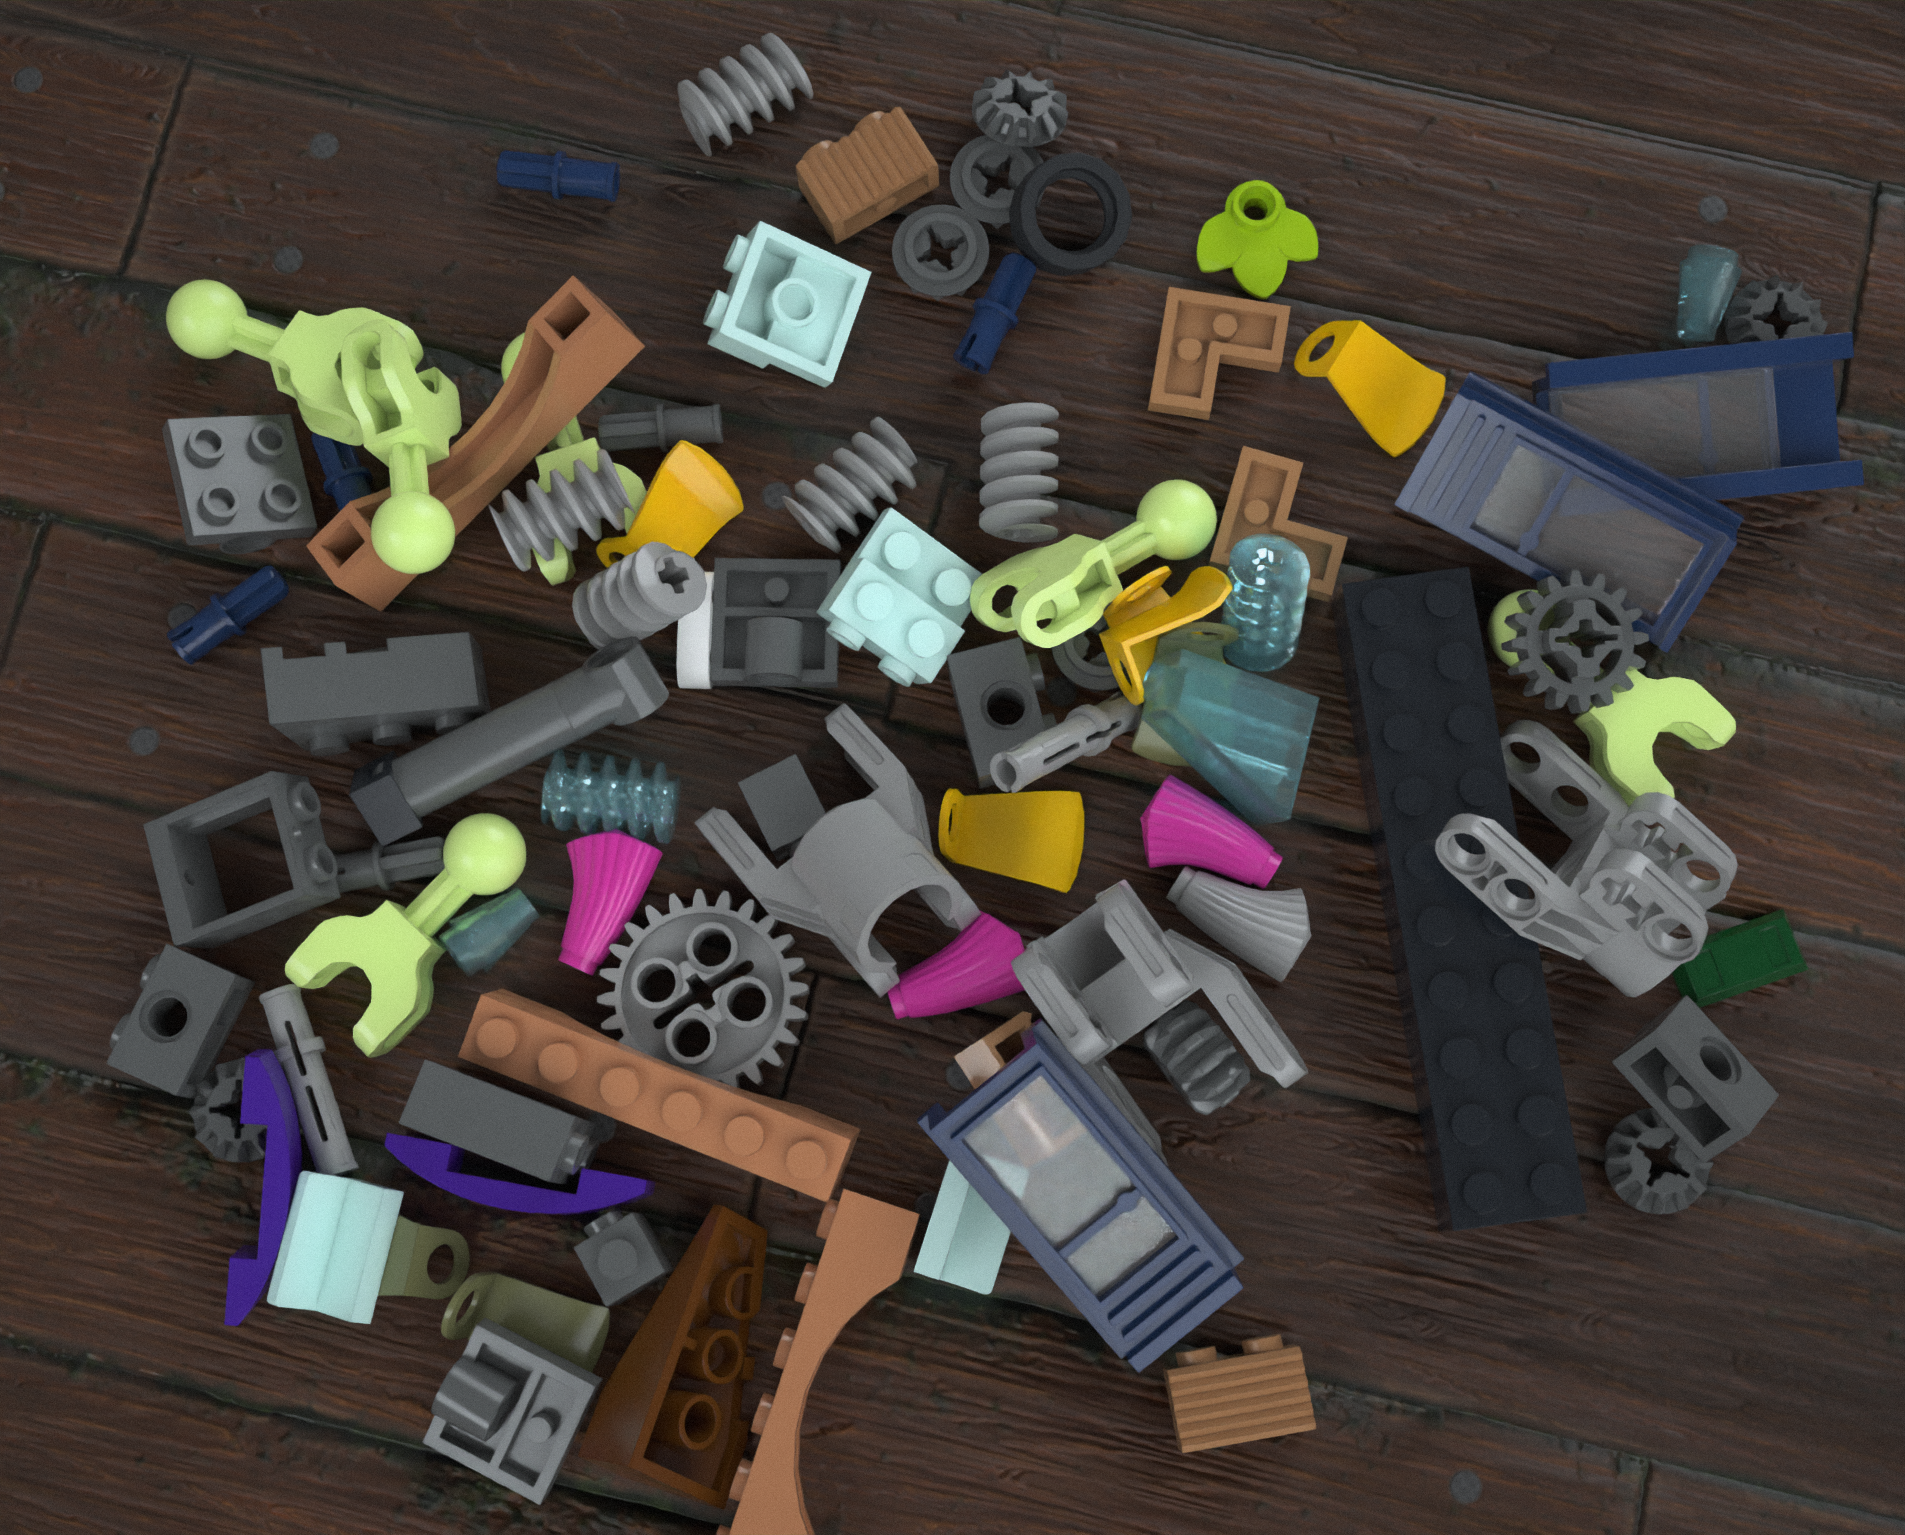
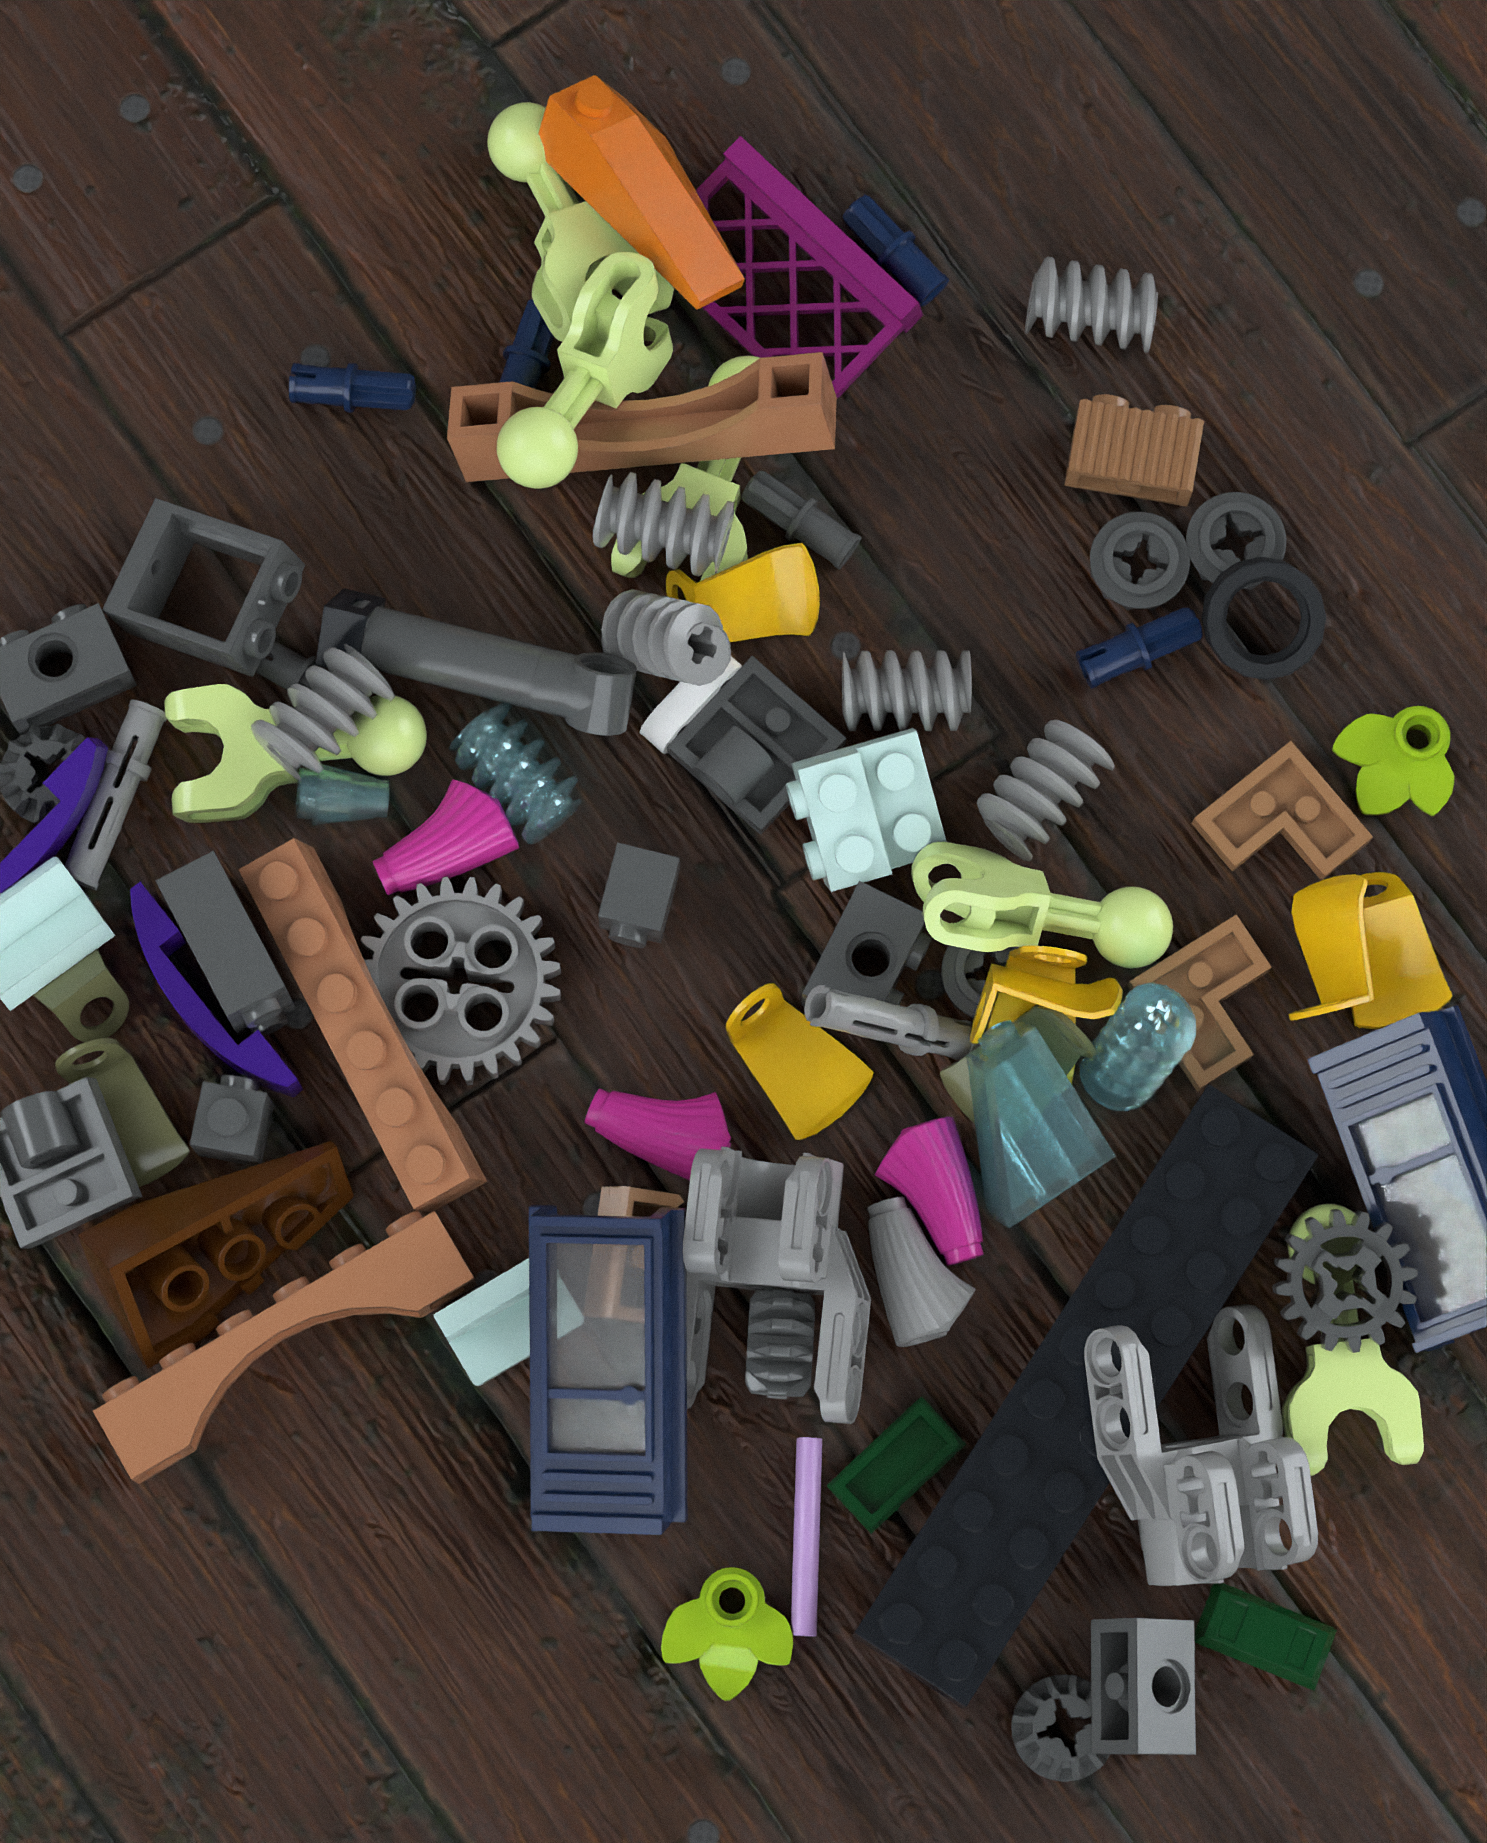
camera: 35 degrees right, 0 degrees up
(239, 481) = (445, 291): dark grey plate -> none
(307, 278) = (637, 187): none -> orange wedge
(376, 692) = (411, 544): dark grey wedge -> none
(416, 876) = (321, 710): none -> light grey piece
(479, 210) = (829, 251): none -> magenta fence
(786, 304) = (979, 503): light aqua plate -> none
(851, 859) = (652, 972): light grey piece -> none
(1010, 123) = (1280, 506): dark grey gear -> none
(1238, 1394) = (591, 1615): medium nougat brick -> none
(1333, 406) = (1334, 942): none -> yellow piece
(1341, 1188) = (806, 1536): none -> lavender bar
(1353, 1321) = (727, 1642): none -> lime plate
(1359, 1073) = (896, 1465): none -> dark green tile

